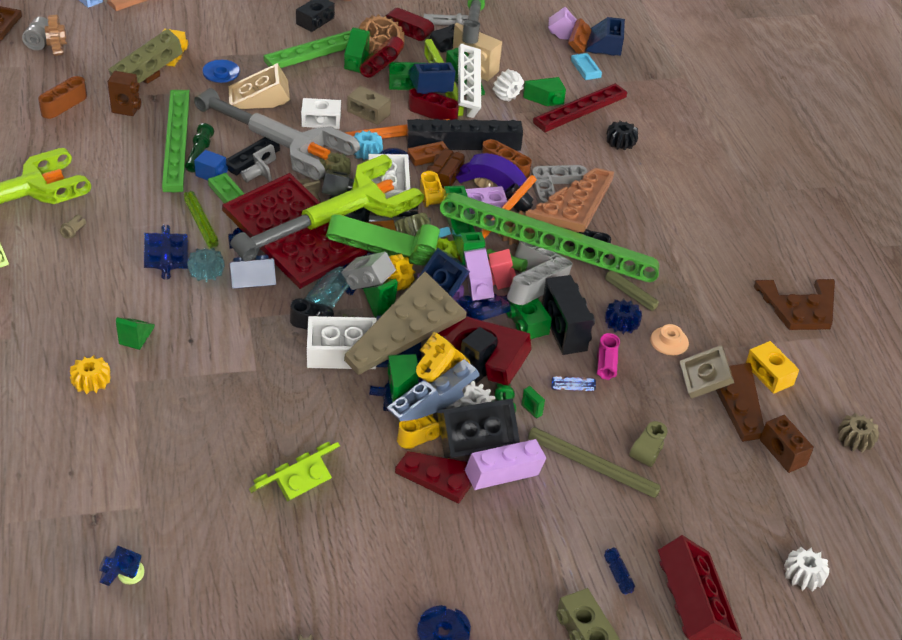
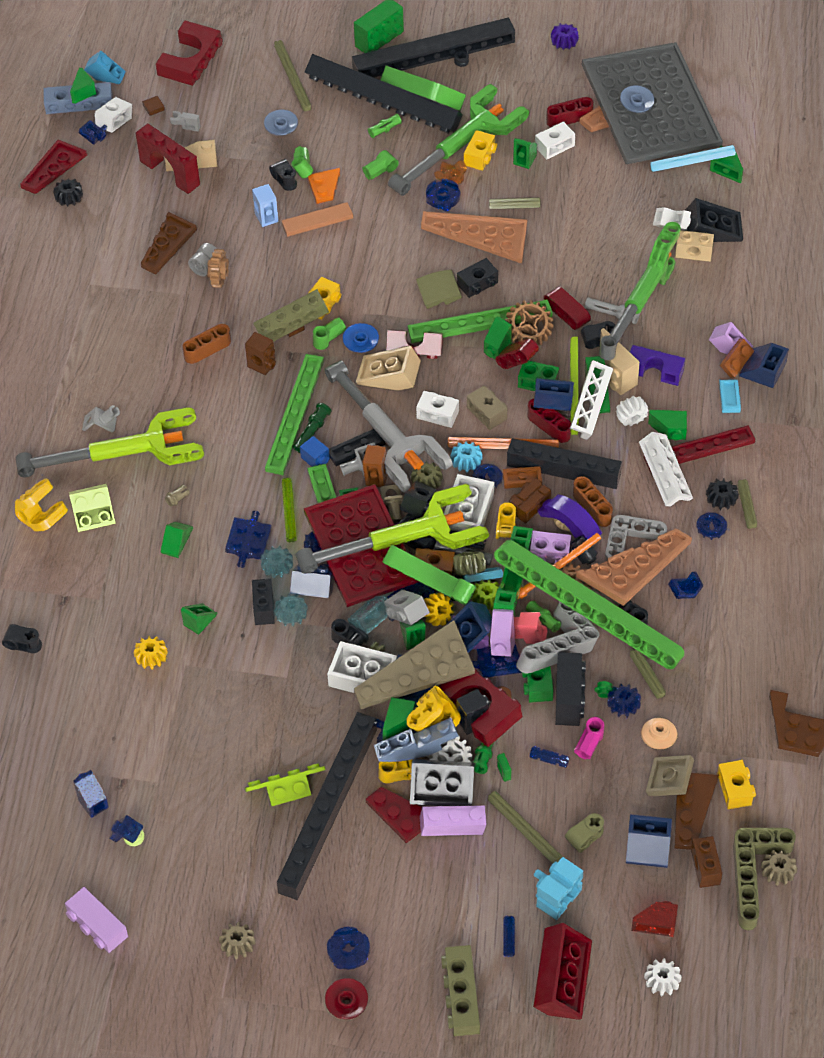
camera: 25 degrees right, 10 degrees up
(62, 534) = (90, 794): none -> clear blue slope
(83, 265) = (175, 538): none -> green slope
(184, 72) = (324, 334): none -> bright green piece
(204, 301) = (263, 601): none -> black brick
(238, 303) = (290, 609): none -> clear light blue gear
(280, 26) = (438, 288): none -> olive slope
(280, 158) = (374, 466): none -> dark orange brick
(294, 64) = (431, 344): none -> arch
(355, 489) = (326, 806): none -> black brick
(522, 51) = (669, 365): none -> dark purple arch
(560, 123) = (664, 468): none -> white fence
(598, 310) = (603, 688): none -> green plate
(630, 163) = (718, 522): none -> clear blue gear
(632, 211) = (686, 587): none -> clear blue bracket
(648, 141) = (747, 504): none -> olive axle
(652, 503) = (558, 888): none -> medium azure brick
(719, 436) = (648, 841): none -> slope
(770, 512) = (656, 919): none -> clear red slope
(818, 423) = (748, 869): none -> olive beam

